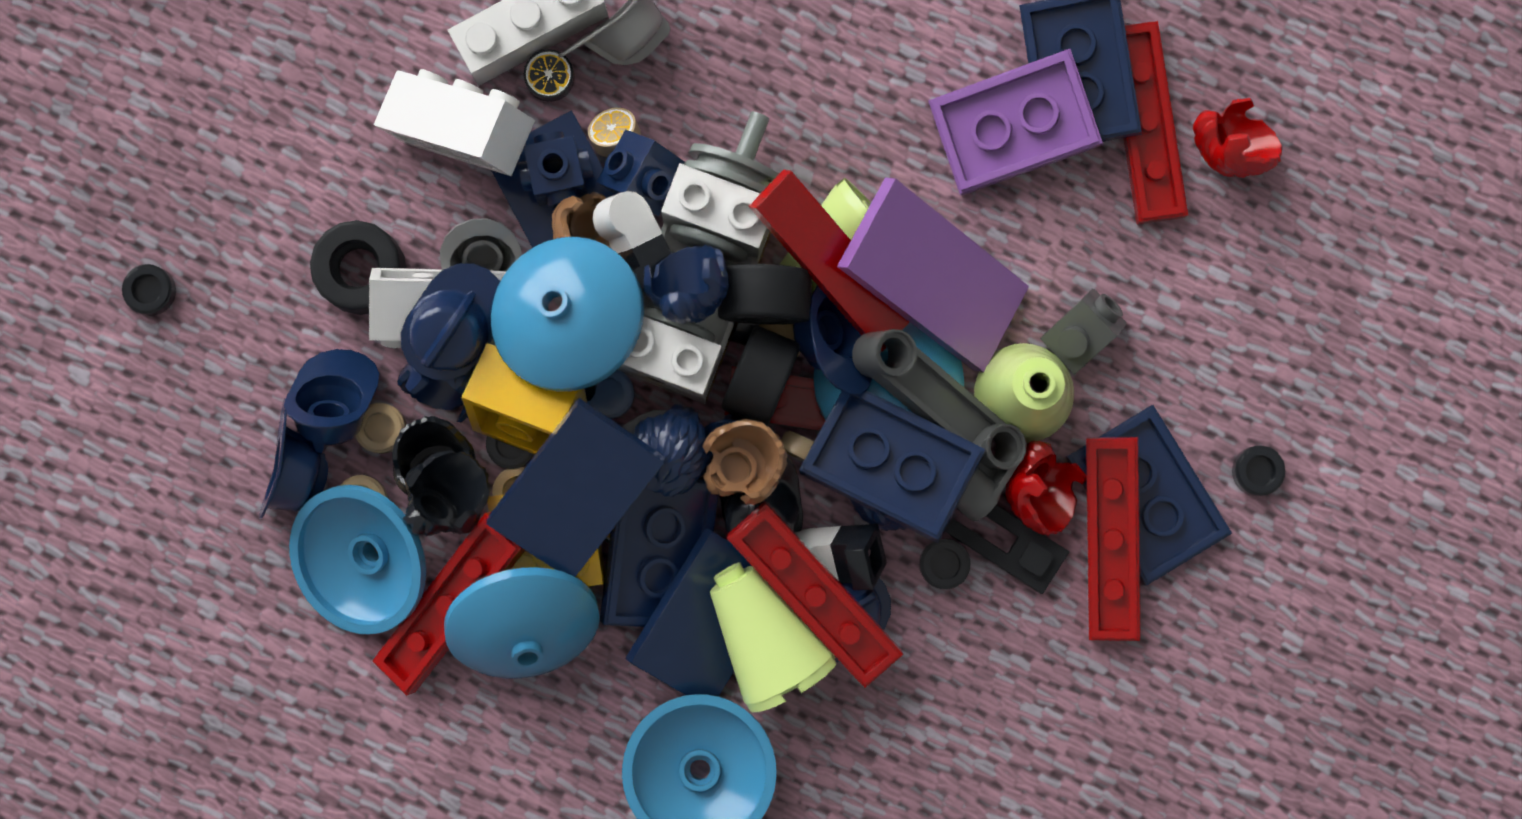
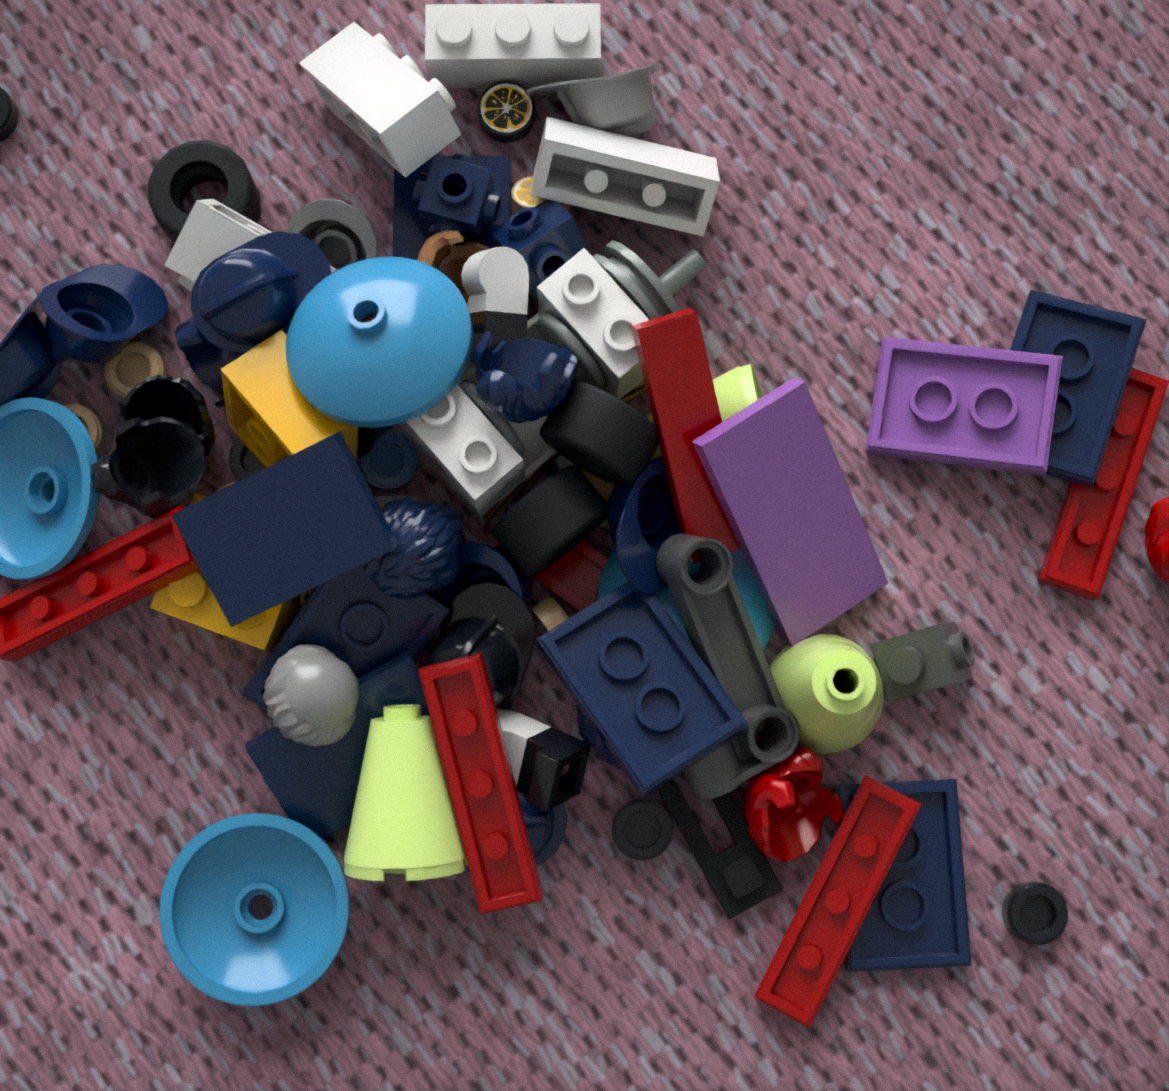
camera: 30 degrees right, 5 degrees down
(521, 622) = (157, 644): dark azure dish -> none
(657, 598) = (311, 696): none -> light grey hair
(671, 83) = (625, 176): none -> white brick
(744, 460) = (483, 598): medium nougat hair -> none

